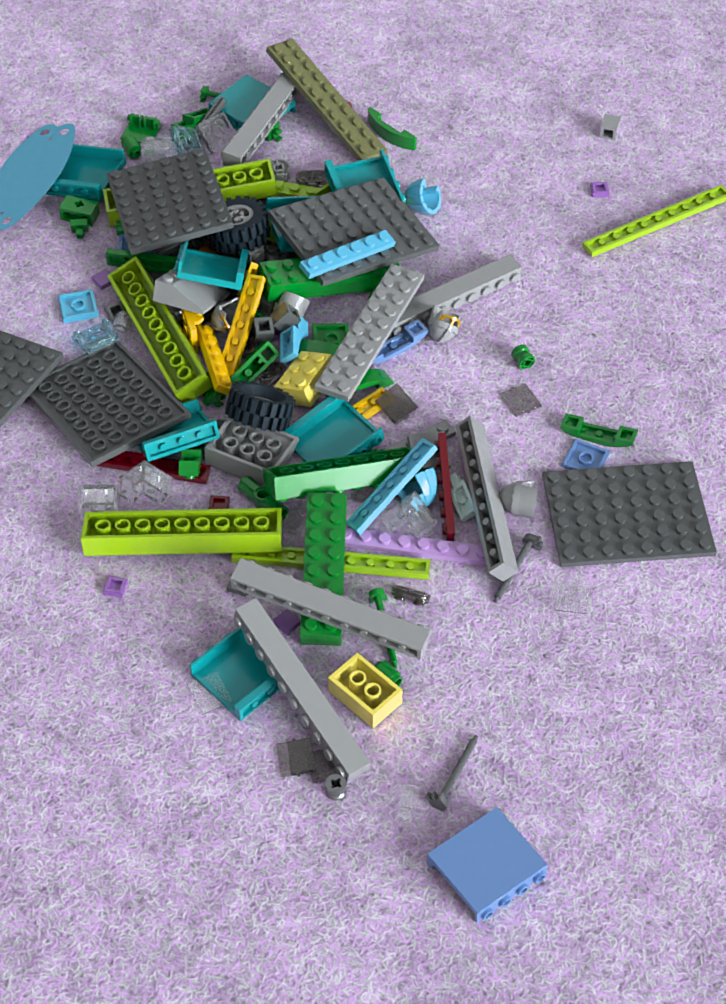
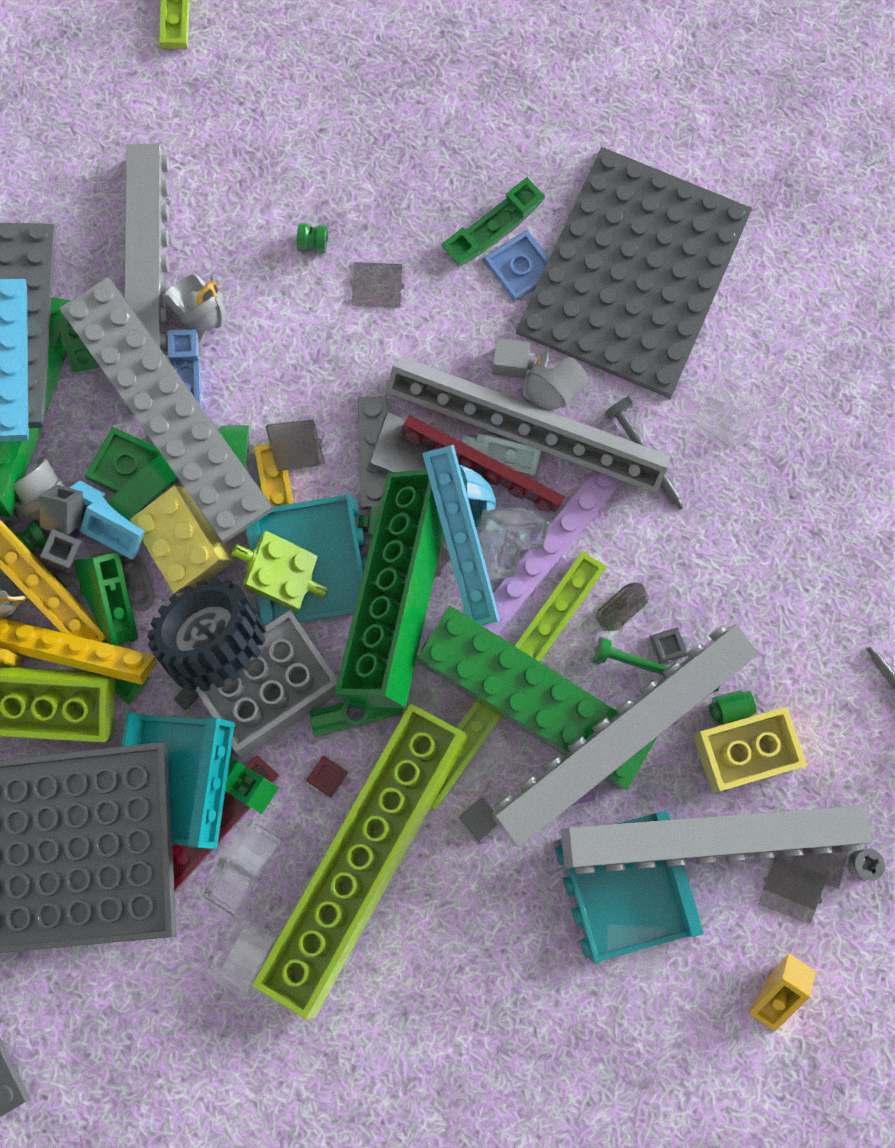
camera: 65 degrees left, 25 degrees up
(115, 586) = (389, 995): medium lavender tile -> none
(230, 772) = (783, 992): none -> yellow slope
(317, 422) = (279, 571): none -> lime plate
(522, 472) = (512, 358): none -> light grey brick

